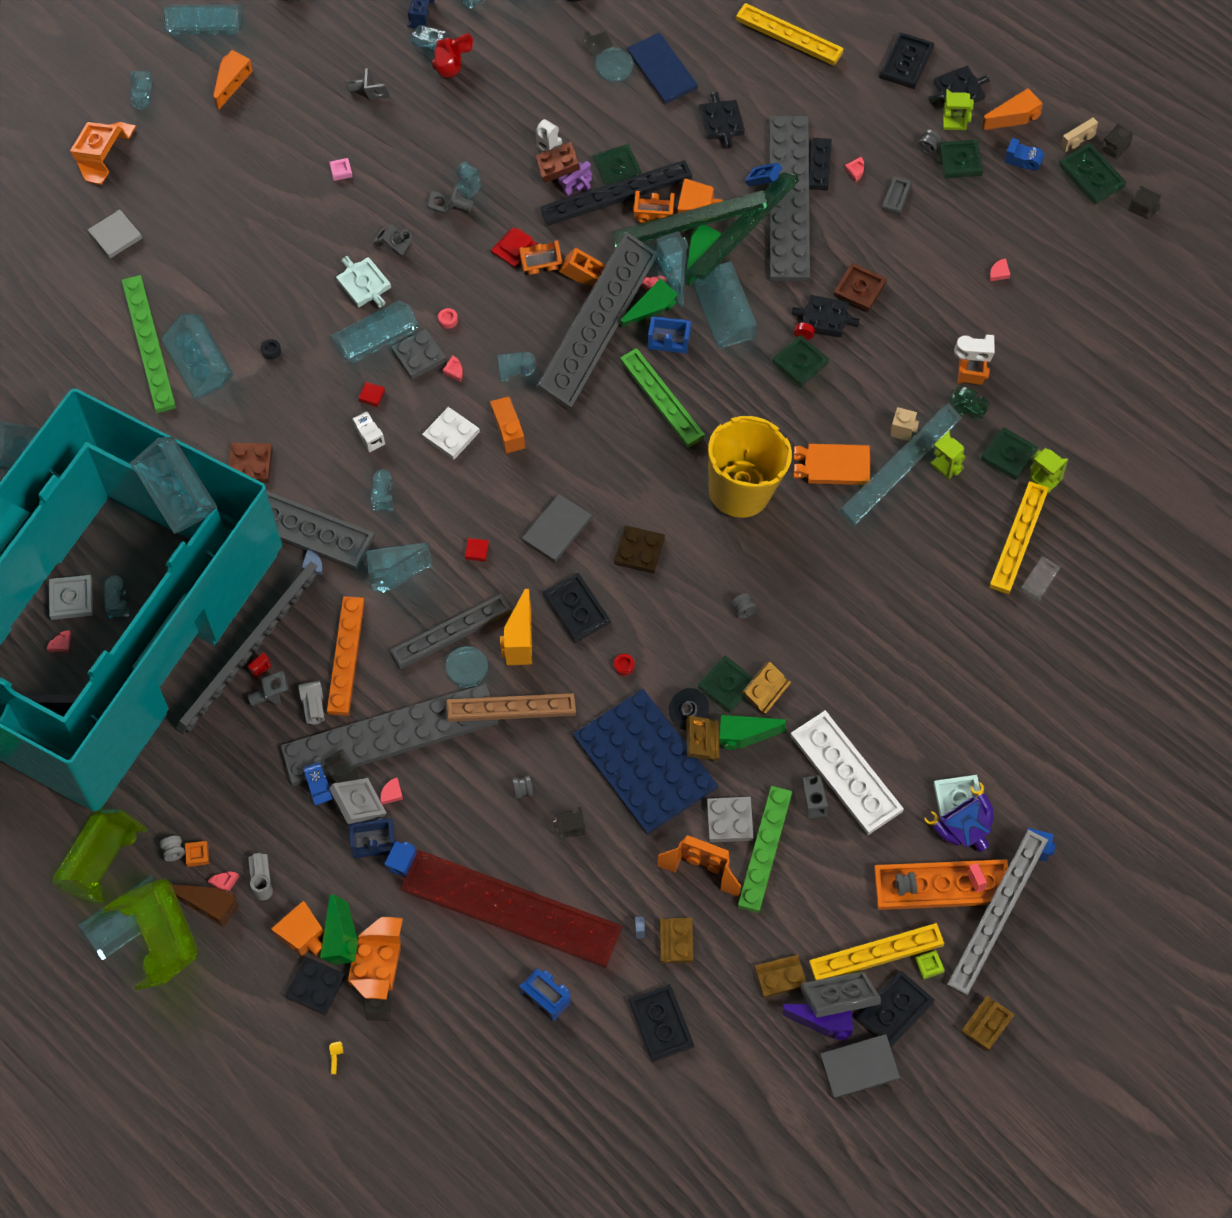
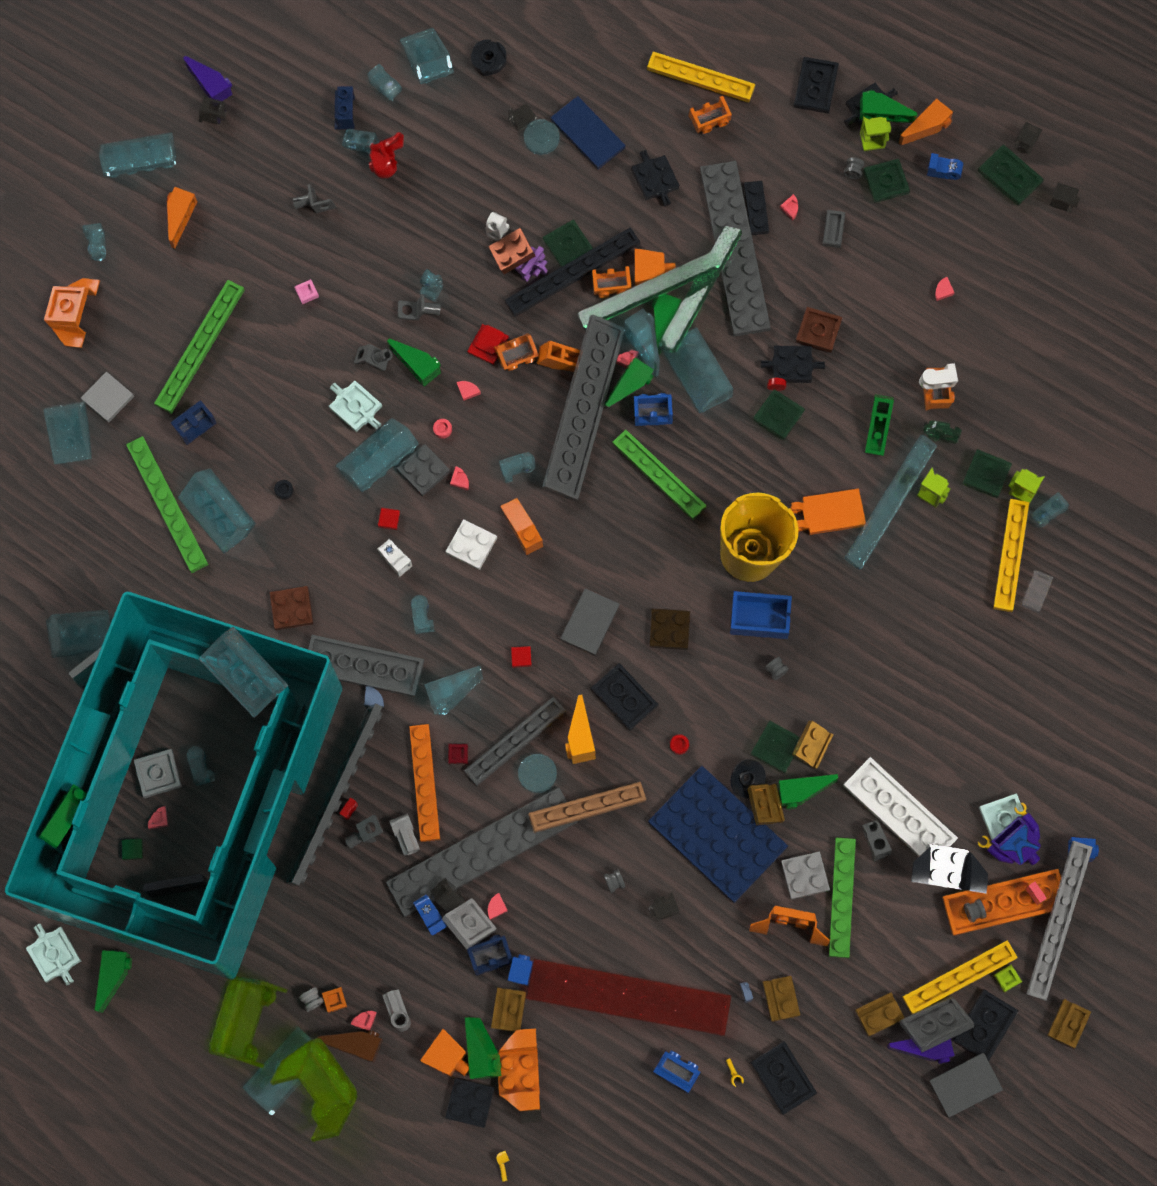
camera: 10 degrees left, 10 degrees up
(25, 667) = (132, 849): none -> dark green tile
(66, 257) = (68, 432): none -> clear light blue slope
(194, 269) = (193, 422): none -> dark blue window
(219, 202) = (199, 346): none -> bright green plate
(379, 897) = (508, 1009): none -> pearl gold plate
(388, 633) = (457, 753): none -> dark red tile
(436, 250) = (416, 361): none -> green slope
(482, 286) = (468, 390): none -> coral tile
(608, 1009) = (733, 1072): none -> yellow hand
(737, 549) = (760, 615): none -> blue piece
(763, 174) = (707, 230): blue plate -> none
(791, 71) = (710, 116): none -> orange window
(886, 837) = (950, 869): none -> piece
(904, 384) = (879, 424): none -> green slope
(904, 424) = (886, 462): tan brick -> none
(966, 82) = (879, 105): none -> green slope
(1070, 499) = (1050, 510): none -> clear light blue leg
(1073, 138) = (988, 140): tan plate -> none

